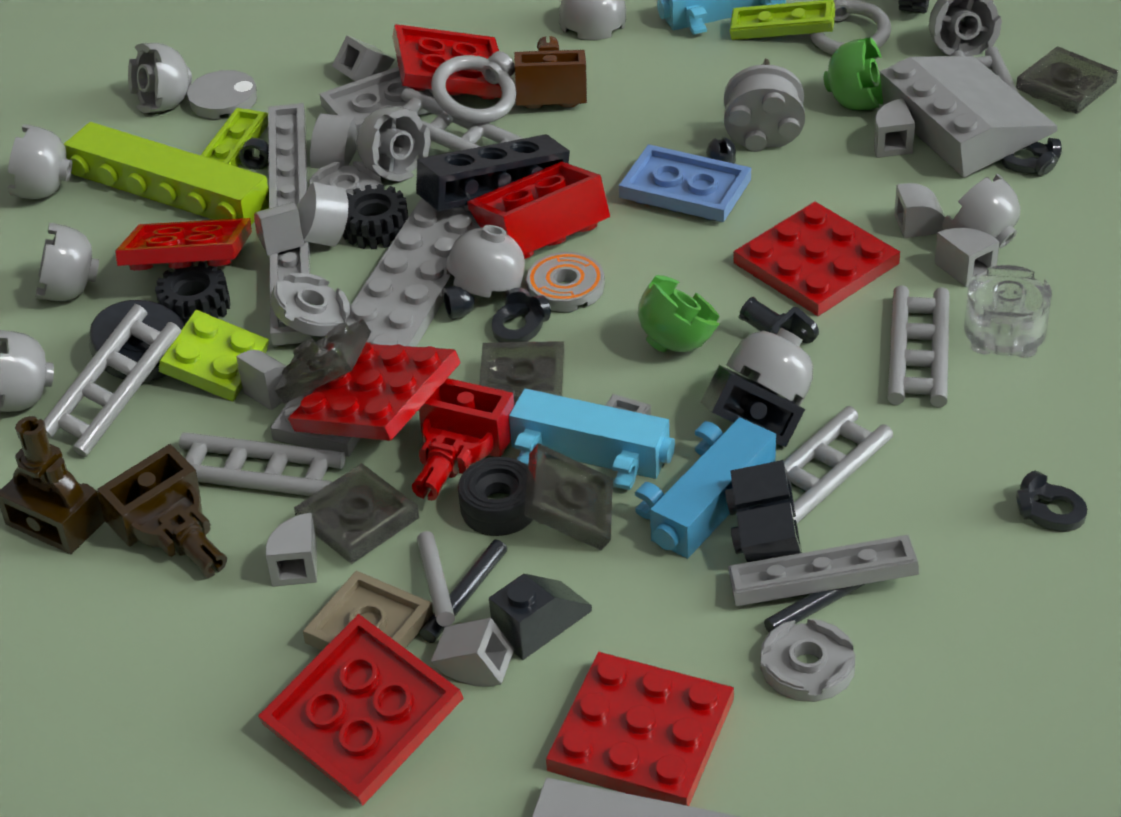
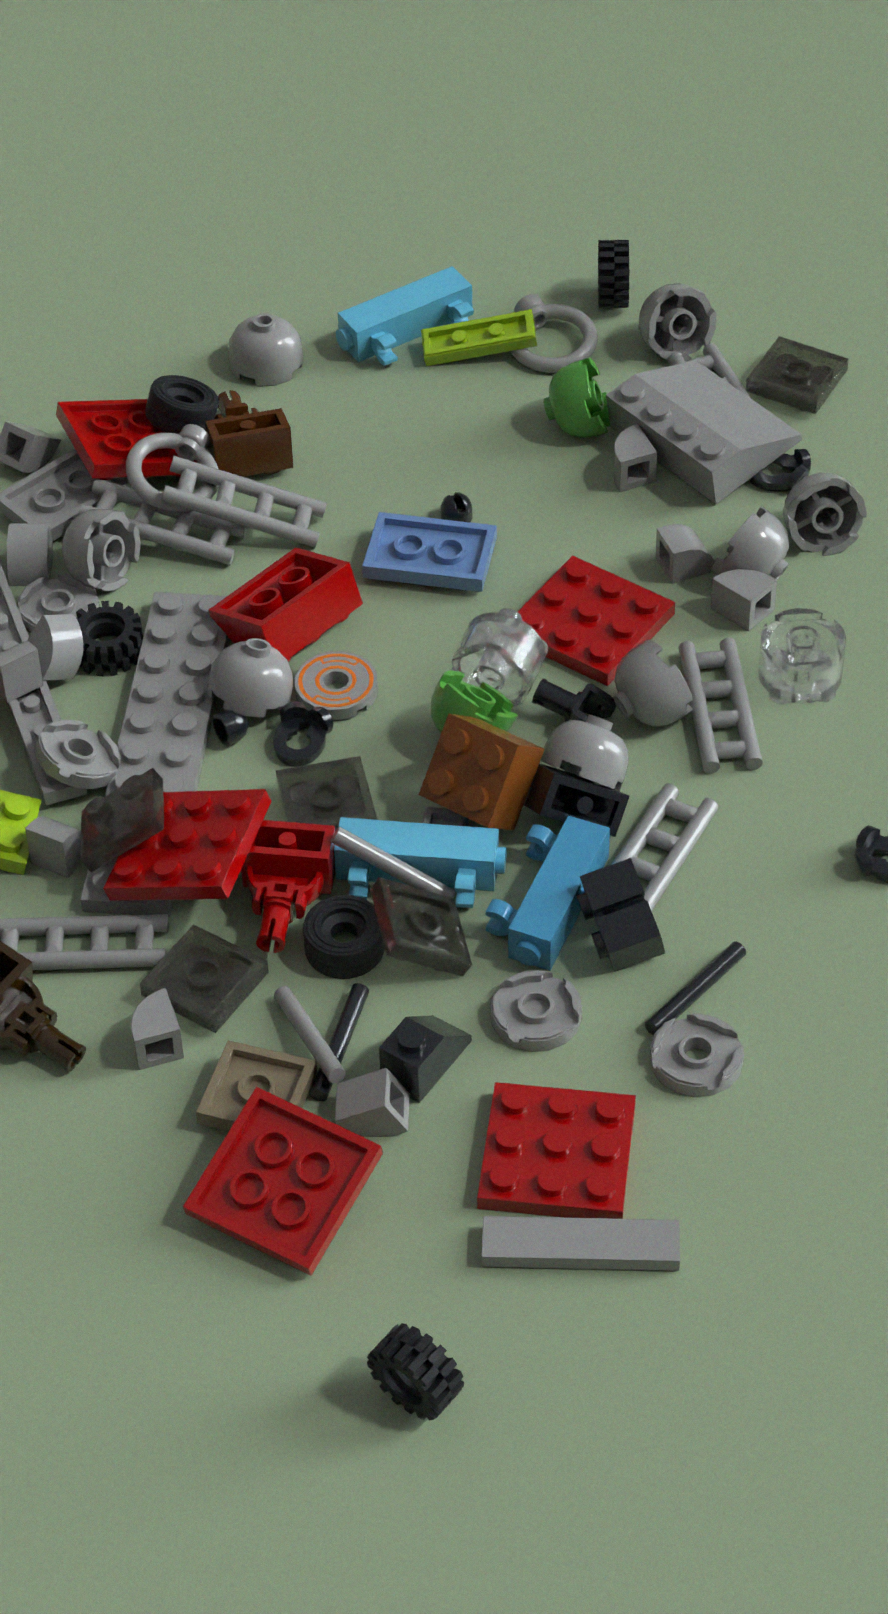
camera: 15 degrees left, 5 degrees up
(462, 175) = (205, 576): black brick -> none
(499, 33) = (179, 402): none -> black tyre
(520, 103) = (222, 508): none -> light grey bar
(556, 435) = (388, 863): none -> light grey bar
(661, 593) = (536, 1011): none -> light grey tile
(666, 366) = (481, 772): none -> dark orange brick
(719, 270) = (501, 653): none -> clear brick
(764, 107) = (493, 452): light grey wheel -> none
(823, 570) = (689, 962): light grey tile -> none
(852, 318) = (650, 687): none -> light grey cylinder
(1061, 192) = (824, 513): none -> light grey cylinder

